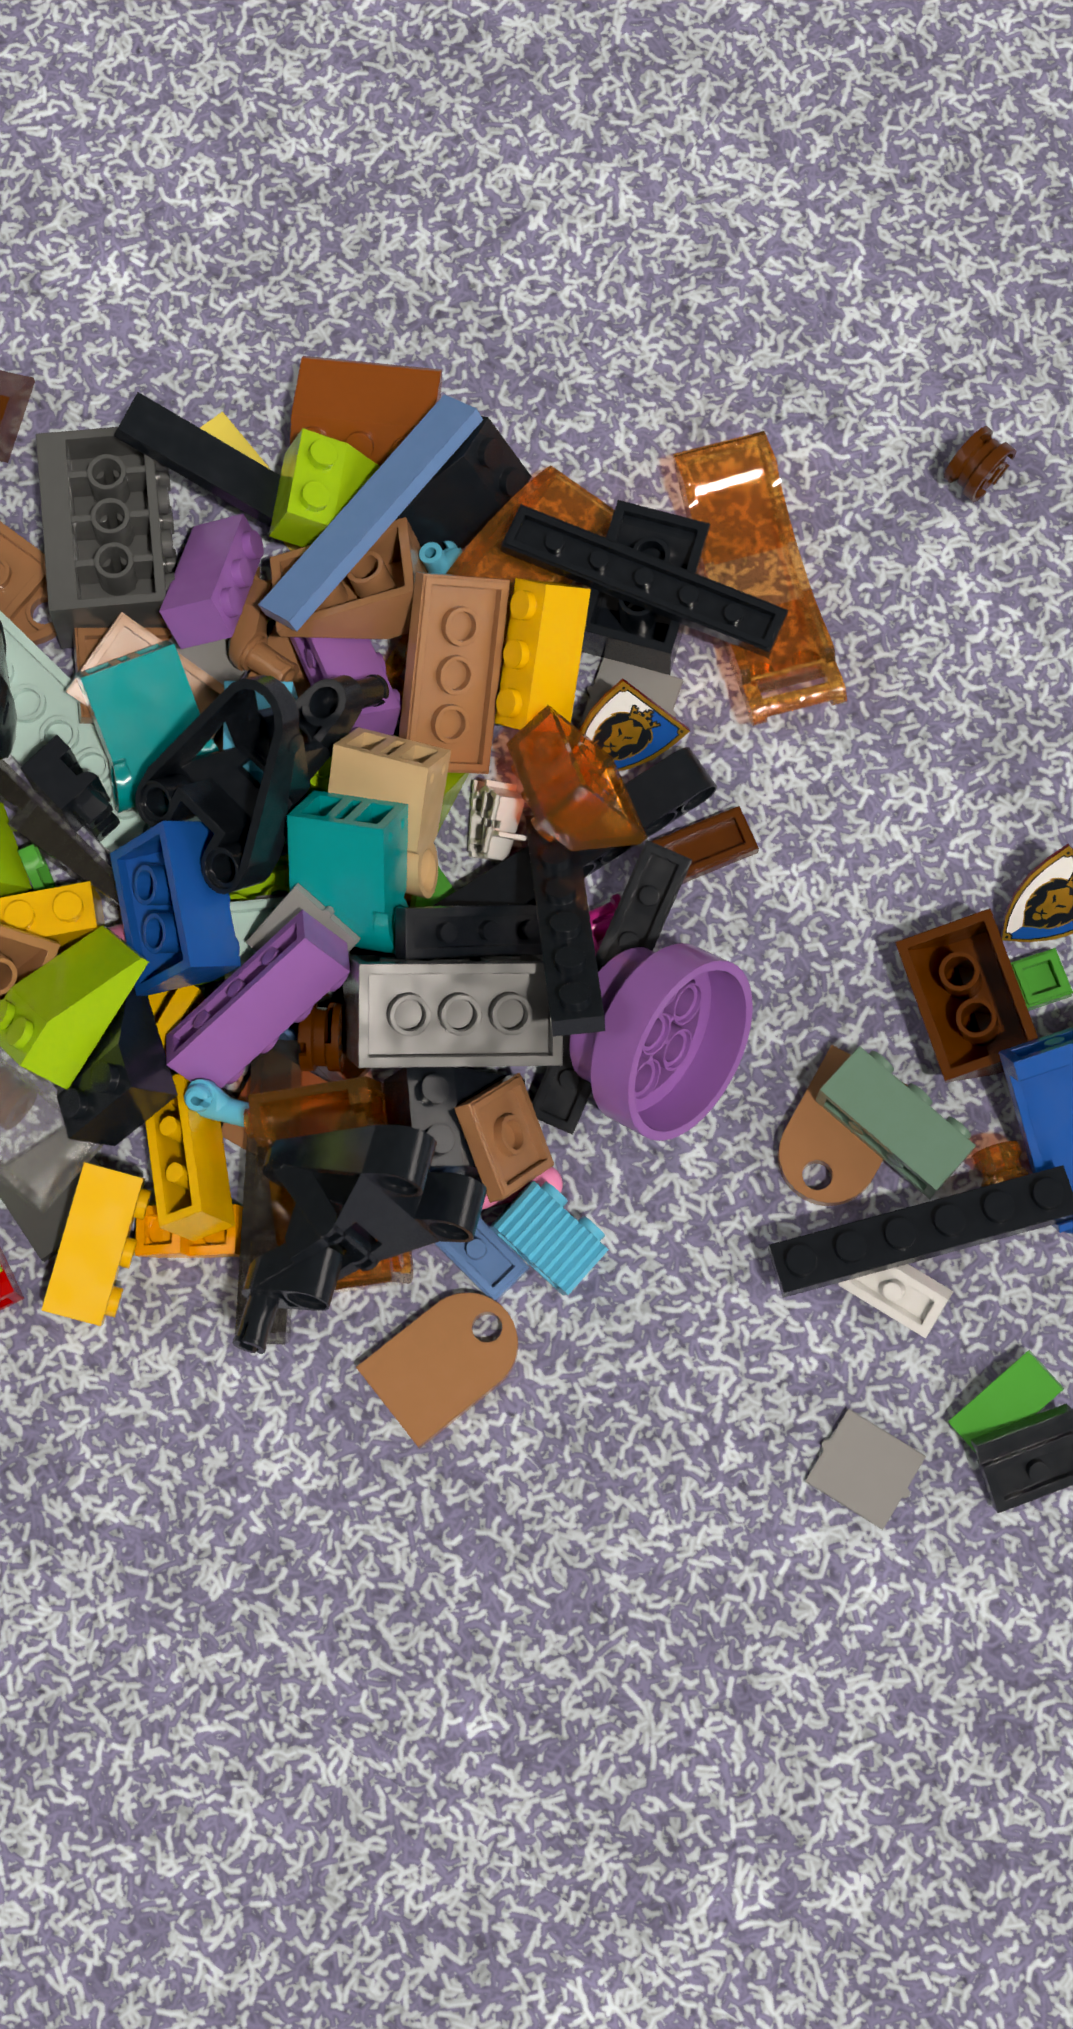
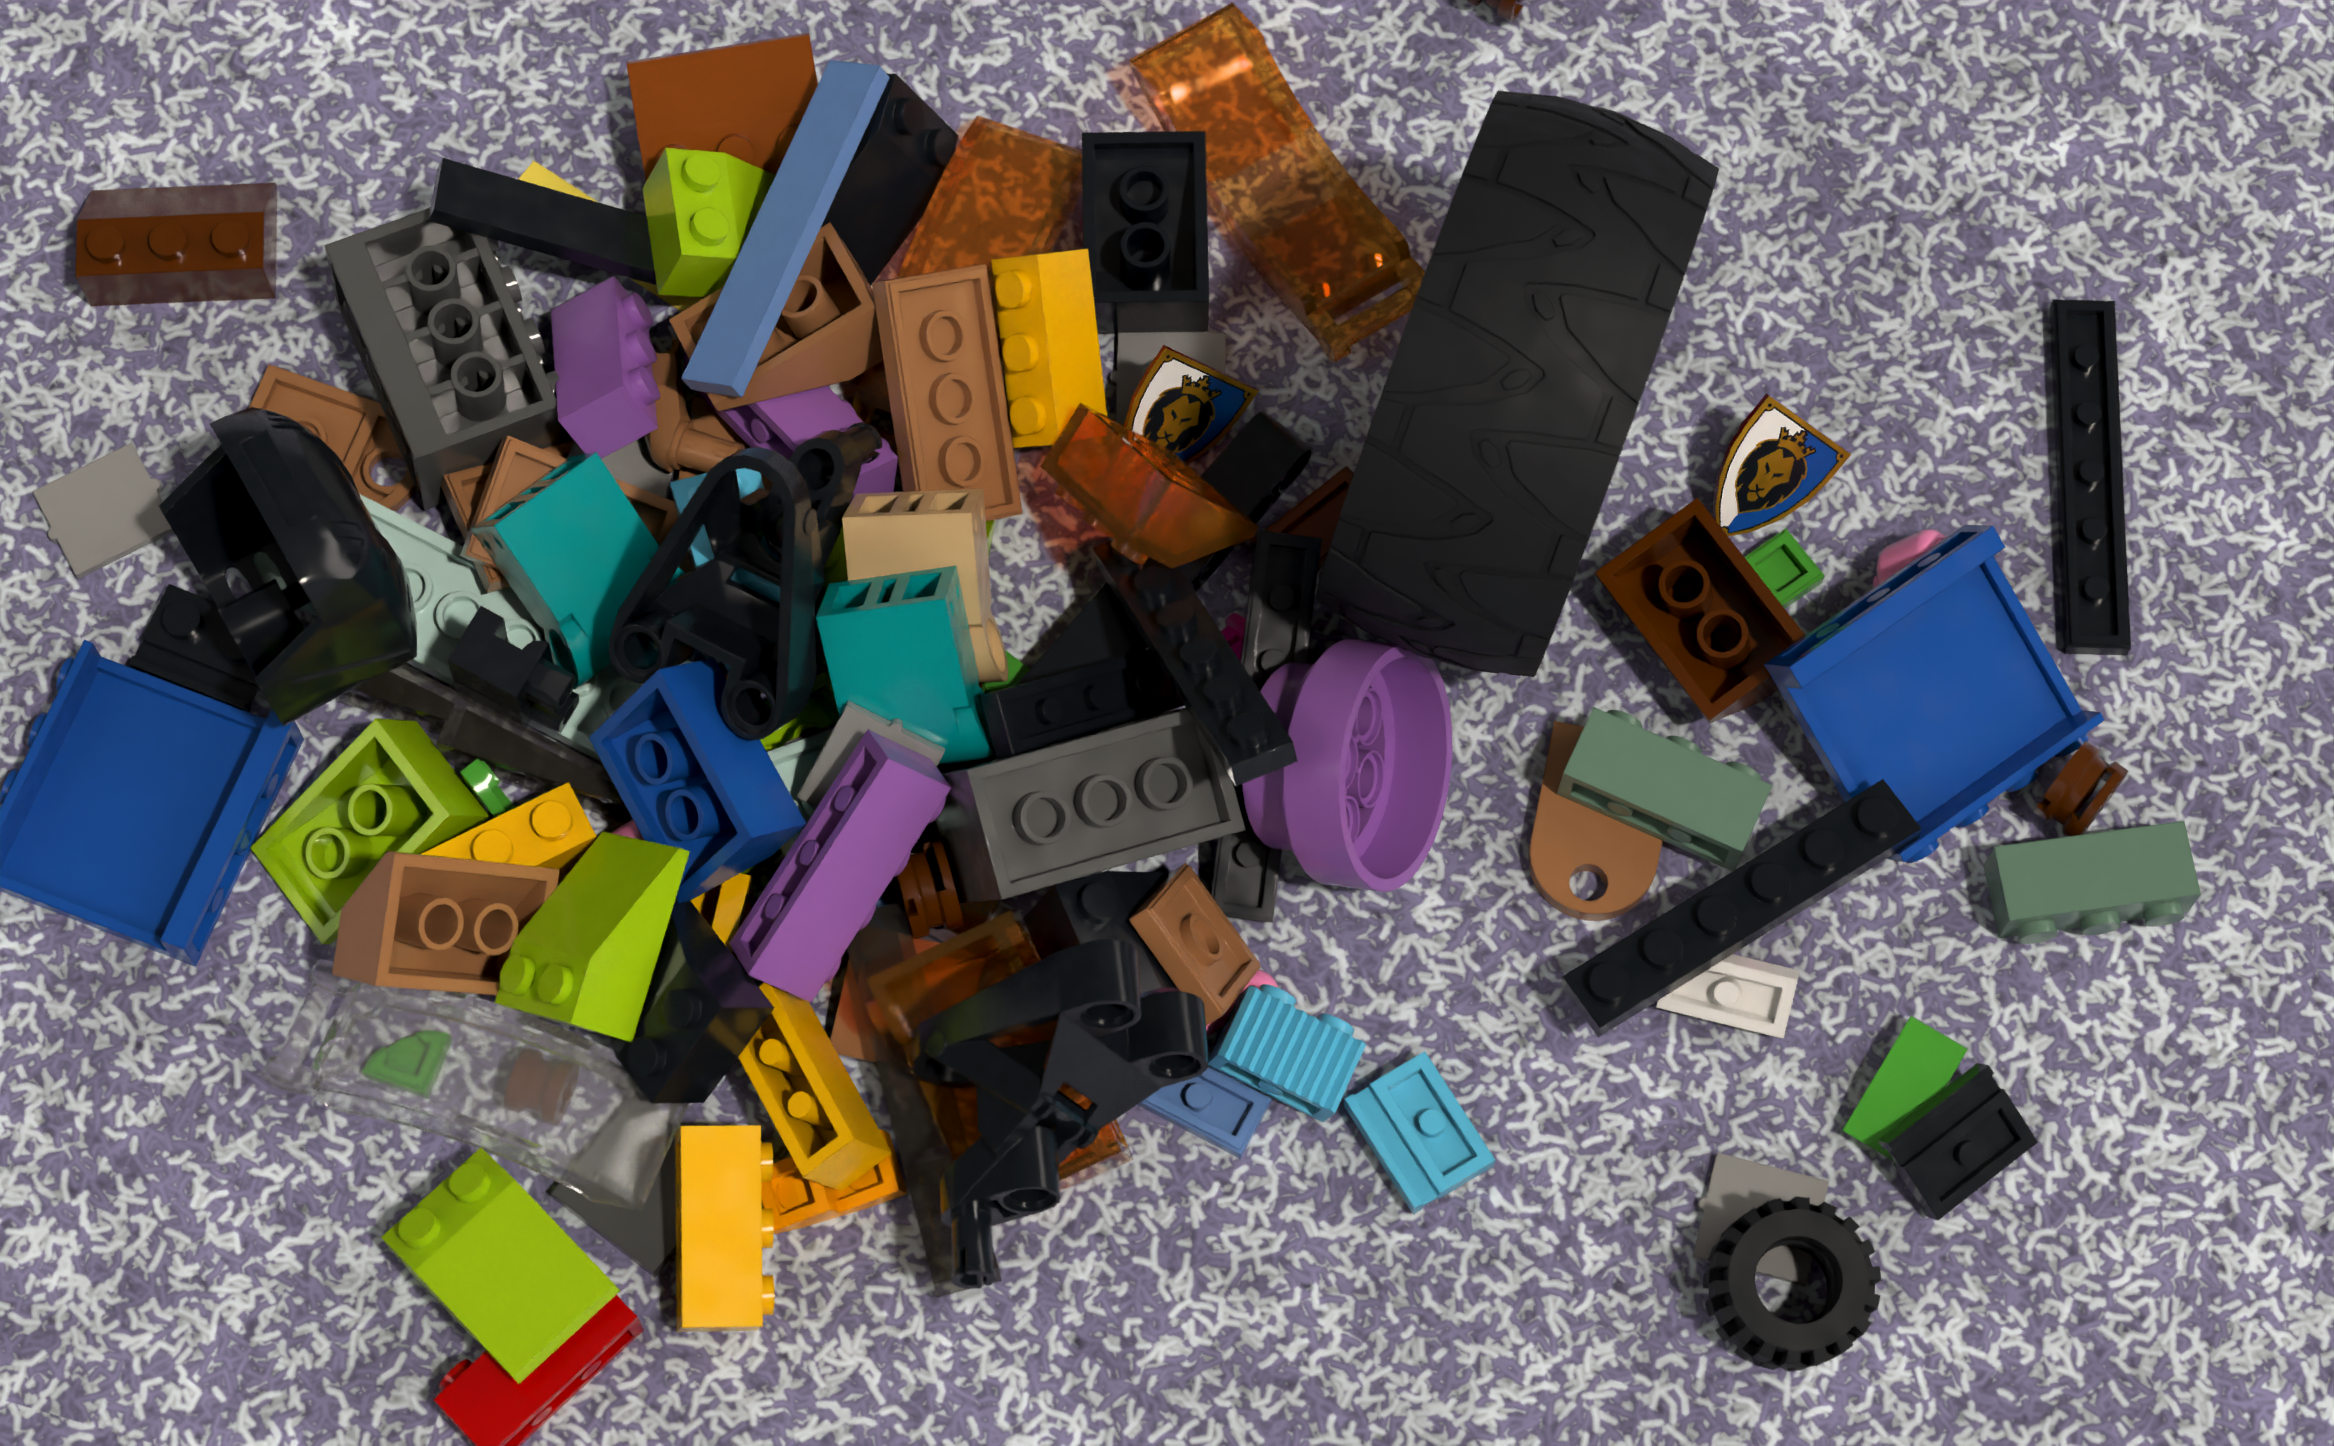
camera: 25 degrees left, 5 degrees down
(213, 1103) = (821, 1009): medium azure arm -> none
(439, 560) = (881, 261): medium azure arm -> none
(439, 1366) = (1199, 1253): medium nougat tile -> none
(494, 819) = (1050, 567): white piece -> none
(629, 1326) = (1419, 1132): none -> medium azure plate
(644, 581) = (1147, 221): black tile -> none
(862, 782) = (1516, 382): none -> black tyre
(914, 1540) = (1836, 1250): none -> black tyre
(999, 1162) = (1802, 801): clear orange wheel -> none

